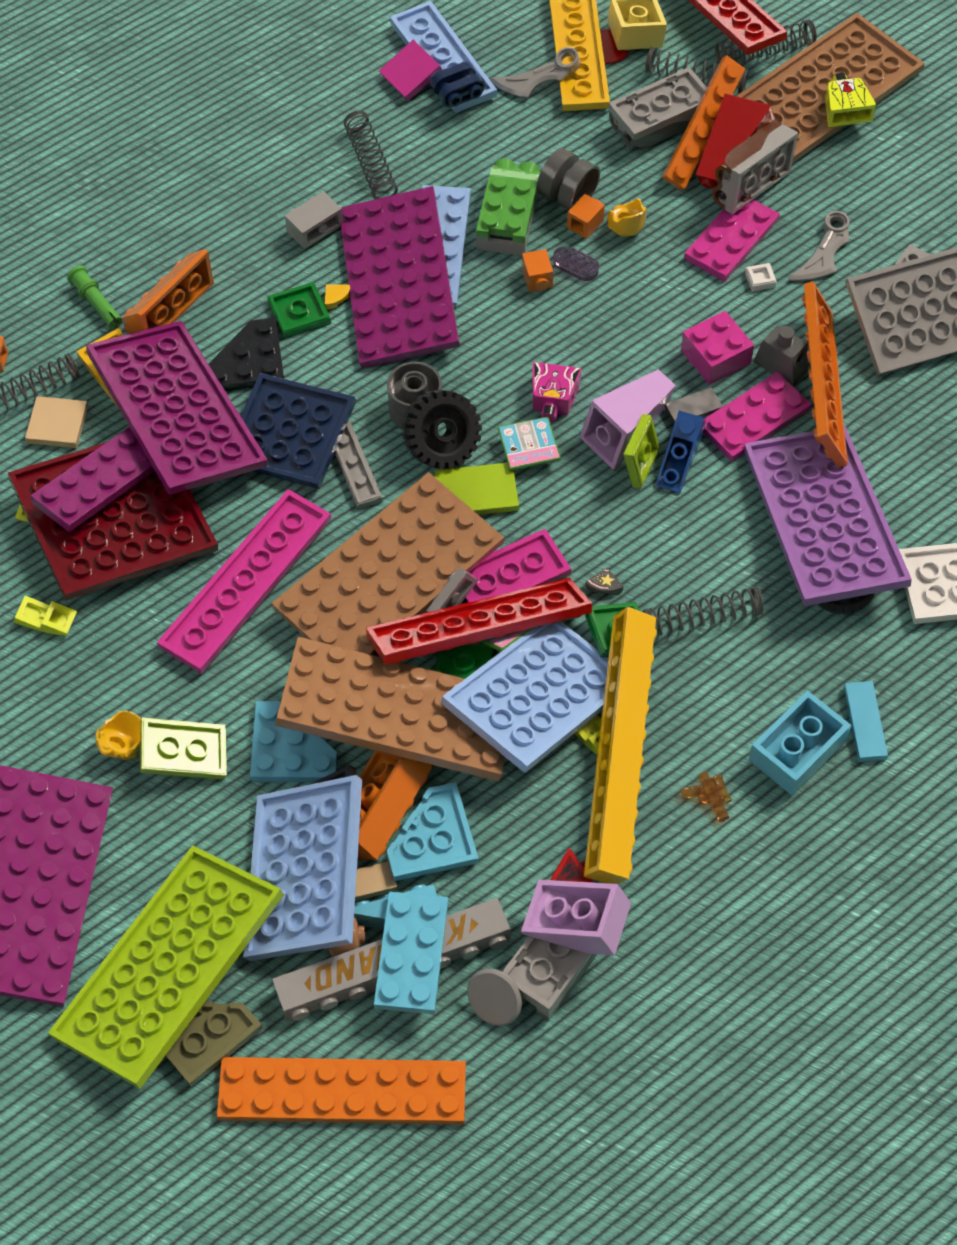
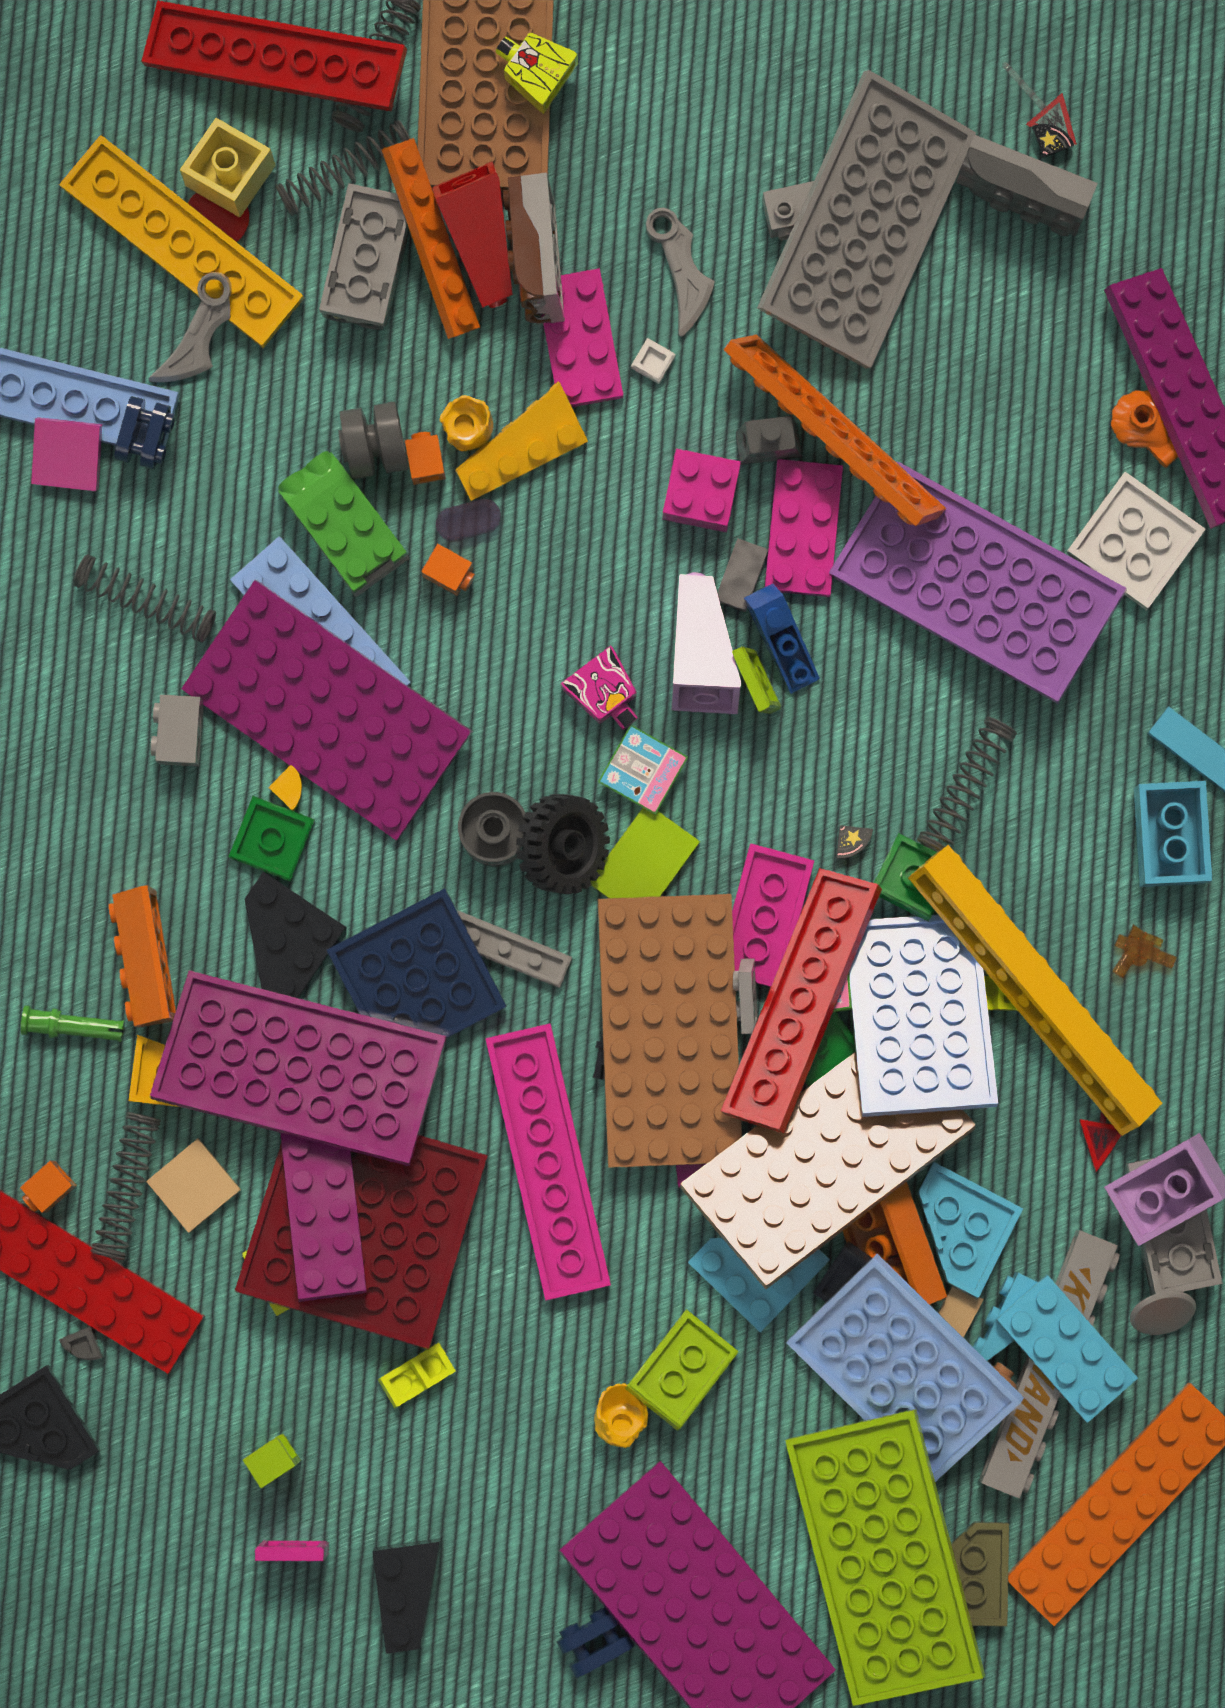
camera: 45 degrees left, 25 degrees up
(651, 253) = (531, 440): none -> yellow wing

